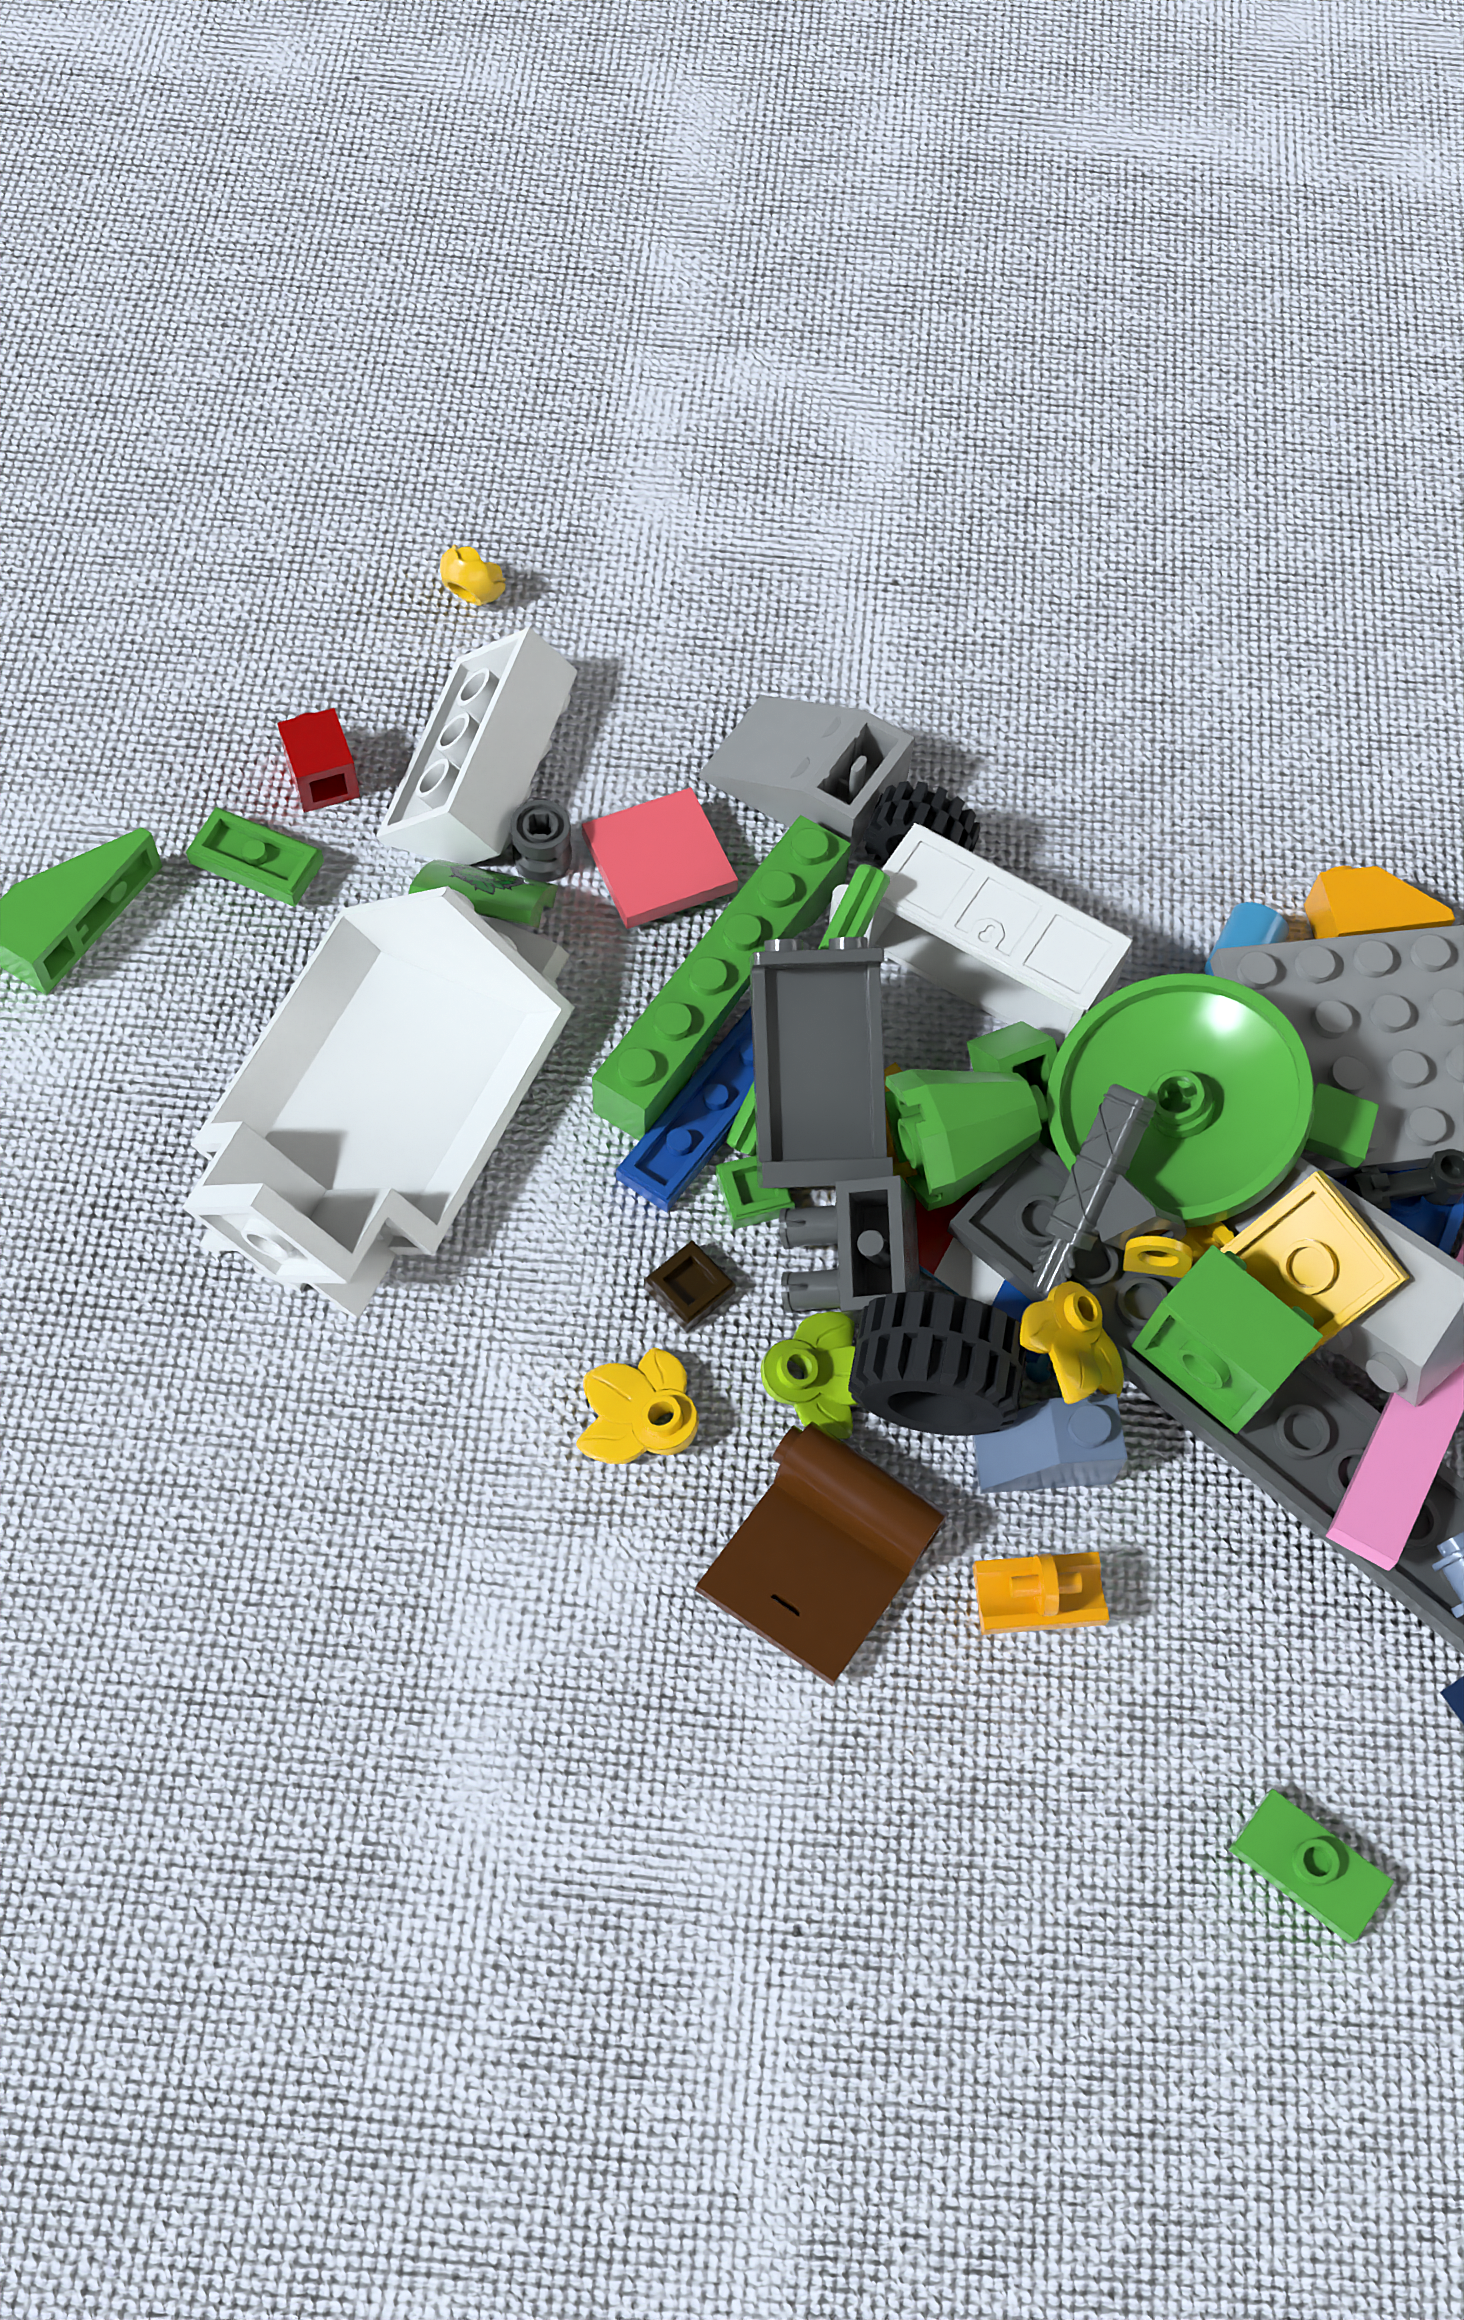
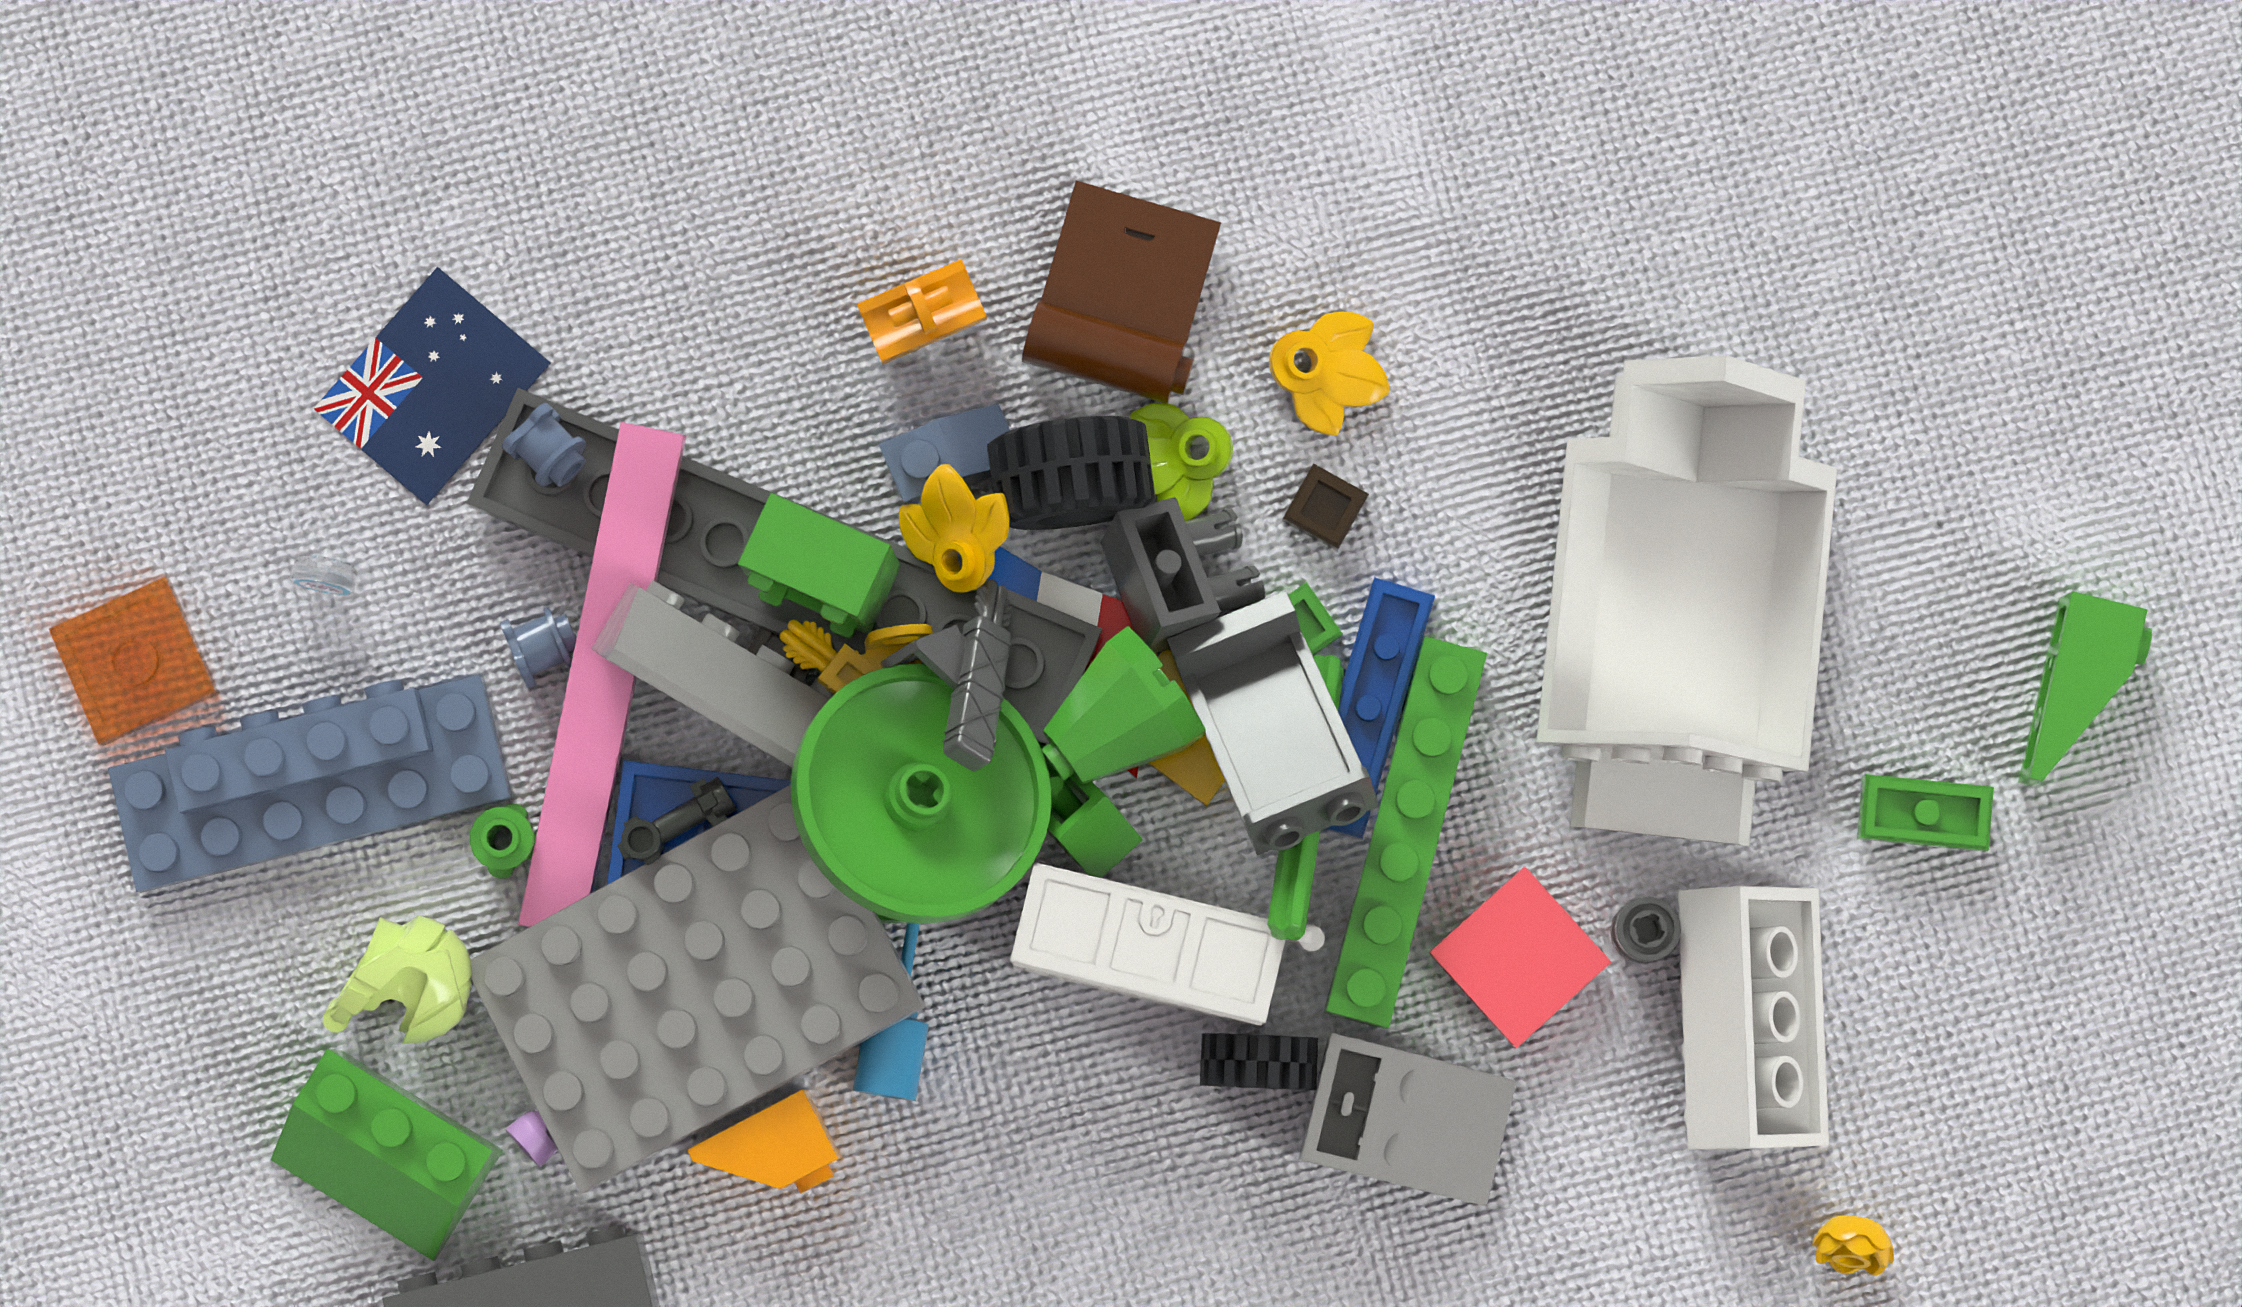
camera: 170 degrees right, 20 degrees up
(319, 759) = (1913, 948): red brick -> none
(491, 892) = (1674, 834): bright green slope -> none
(1311, 1866) = (634, 172): bright green plate -> none
(1319, 1257) = (759, 656): yellow tile -> none
(1341, 1125) = (761, 835): bright green tile -> none

